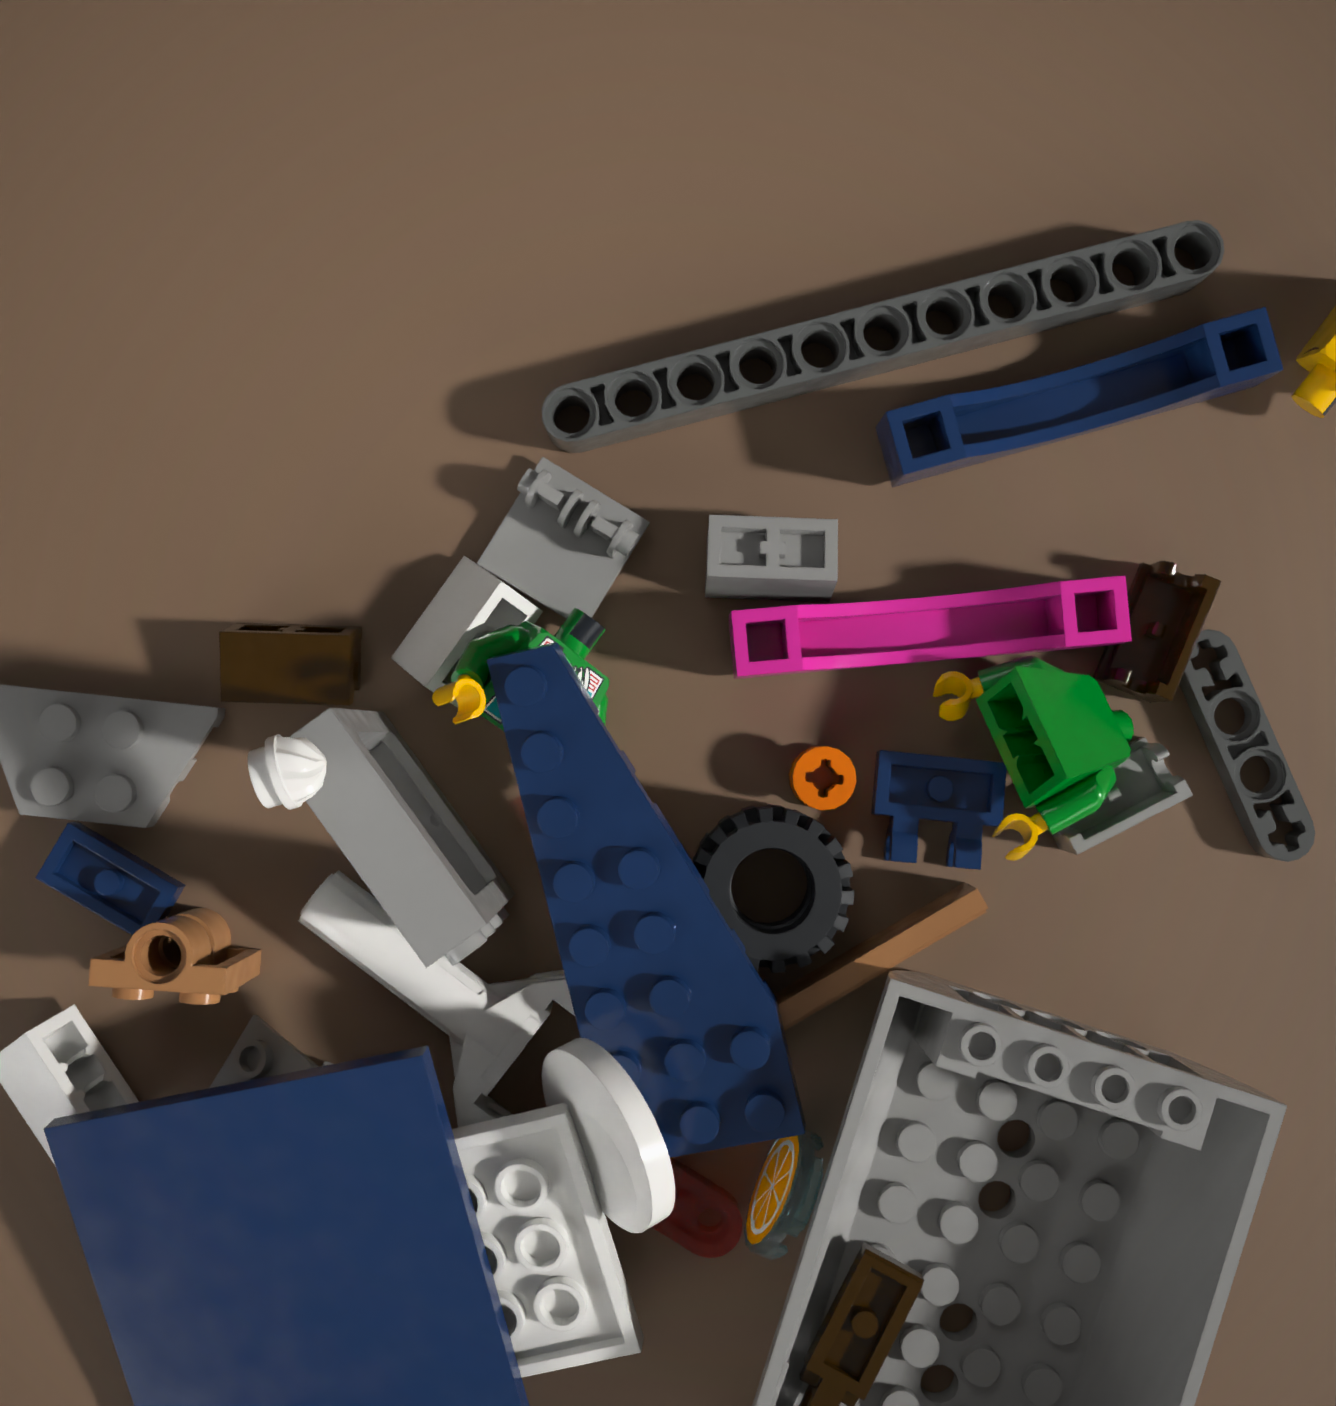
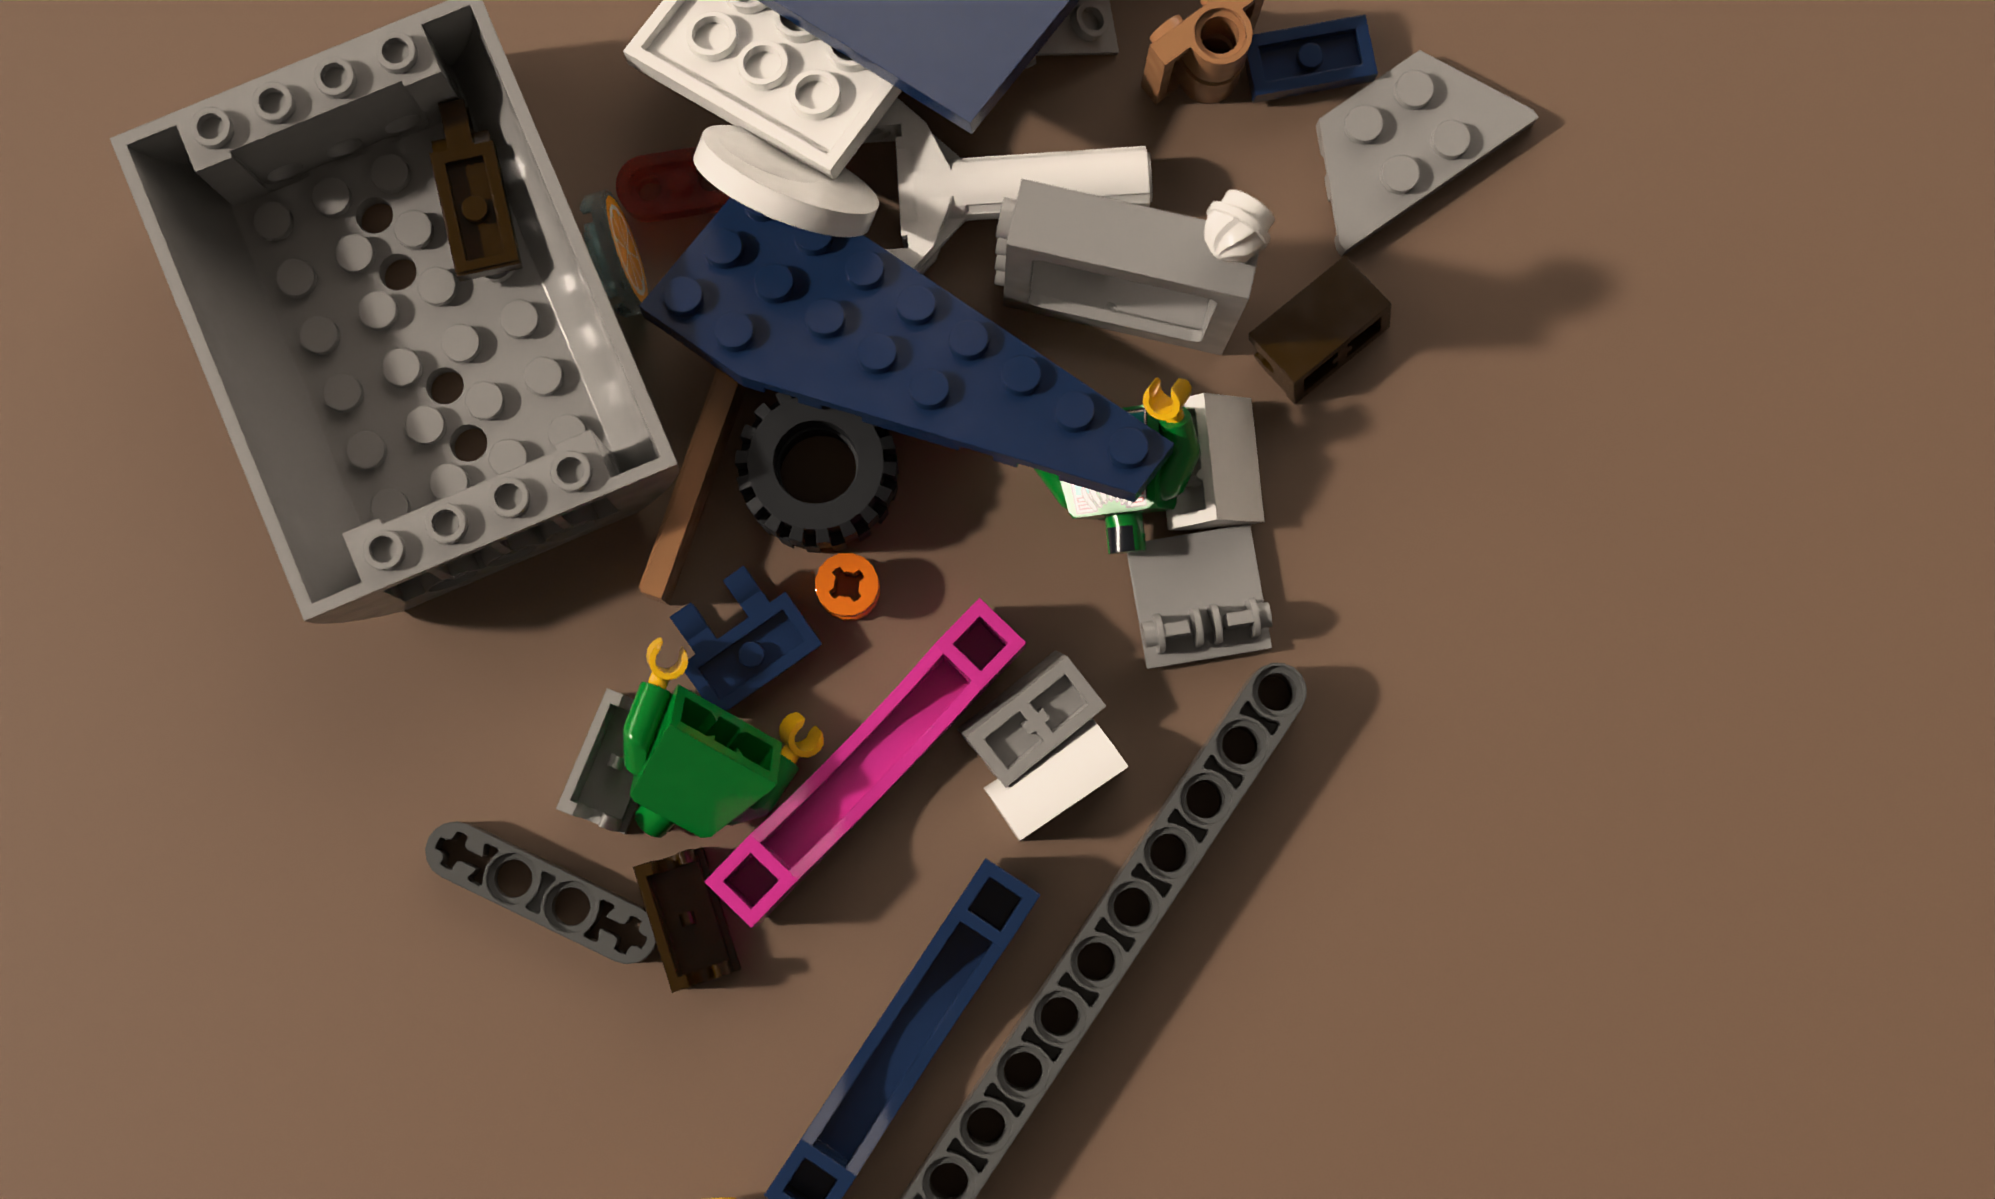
camera: 135 degrees right, 5 degrees down
(794, 490) = (1057, 780): none -> white brick

